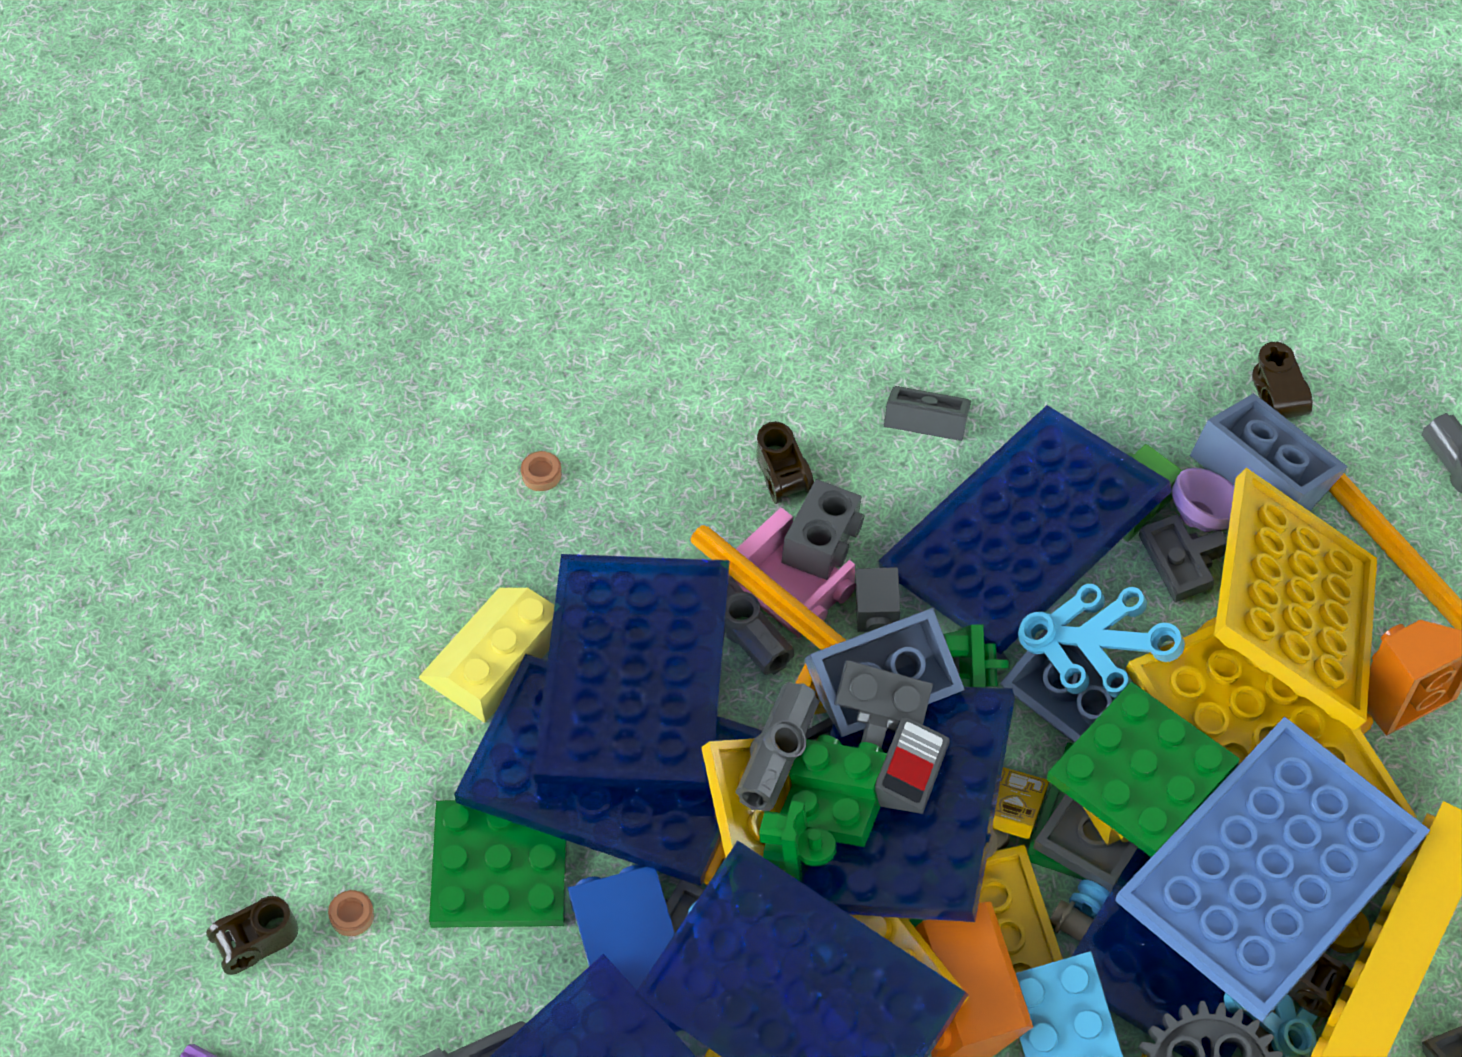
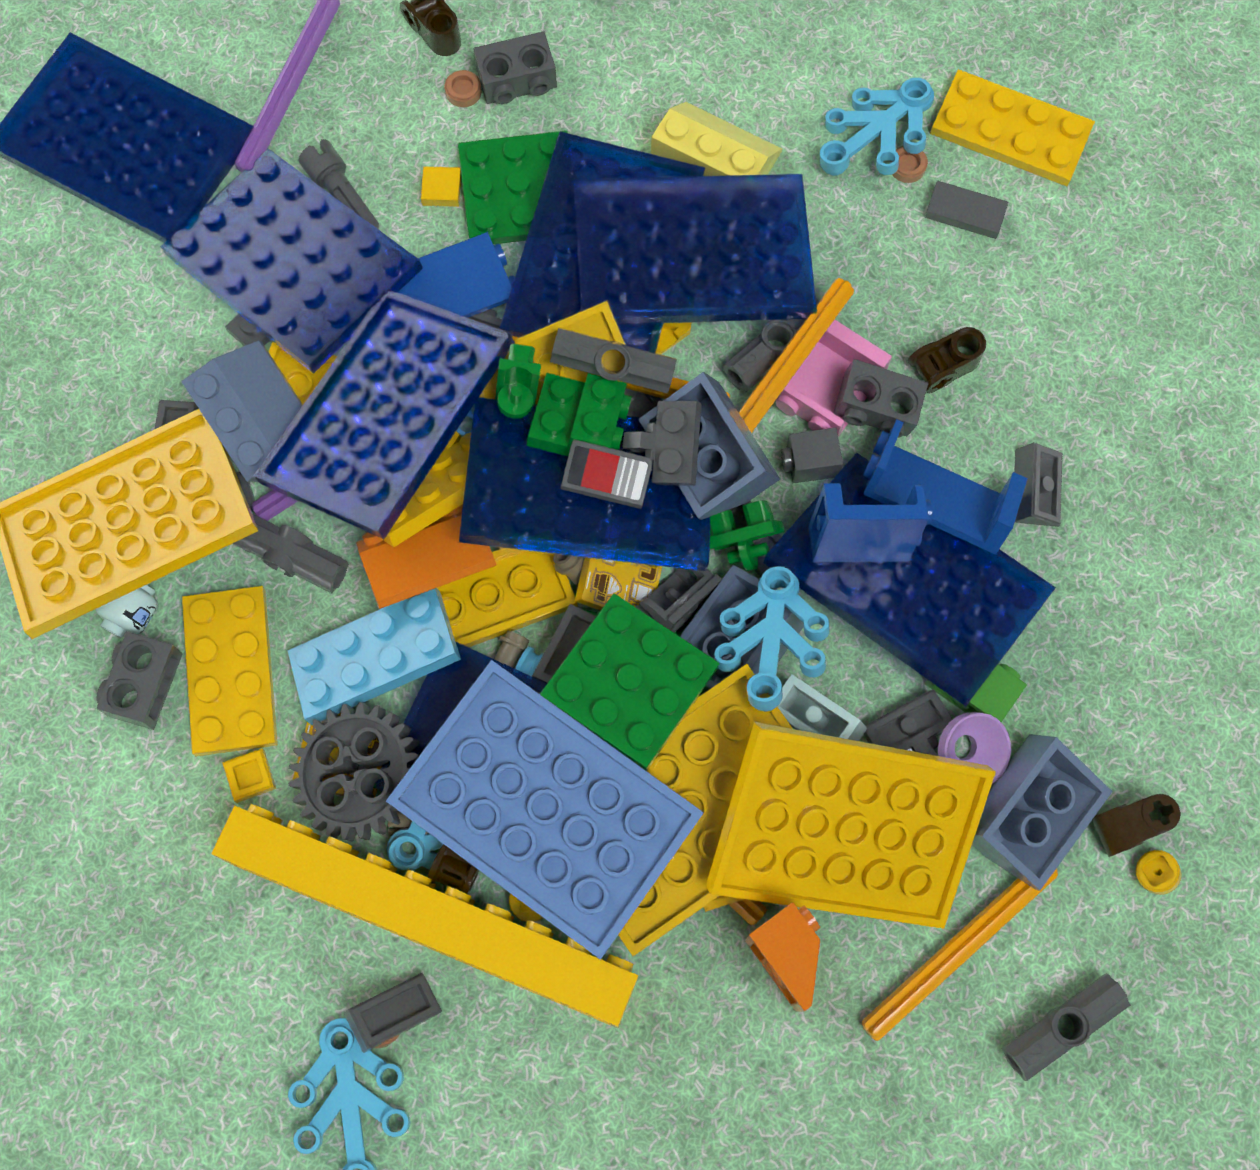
camera: 80 degrees right, 15 degrees up
(338, 847) = (513, 61): none -> dark grey brick
(481, 948) = (441, 186): none -> yellow tile
(493, 485) = (912, 98): none -> medium azure plant
(515, 371) = (1012, 127): none -> yellow plate
(606, 426) = (966, 209): none -> dark grey tile
(940, 486) = (957, 502): none -> blue panel
(985, 563) = (867, 531): none -> blue panel
(1035, 744) = (679, 597): none -> dark grey hinge
(1185, 608) = (815, 713): none -> light aqua brick
(1326, 375) = (1158, 872): none -> yellow tile

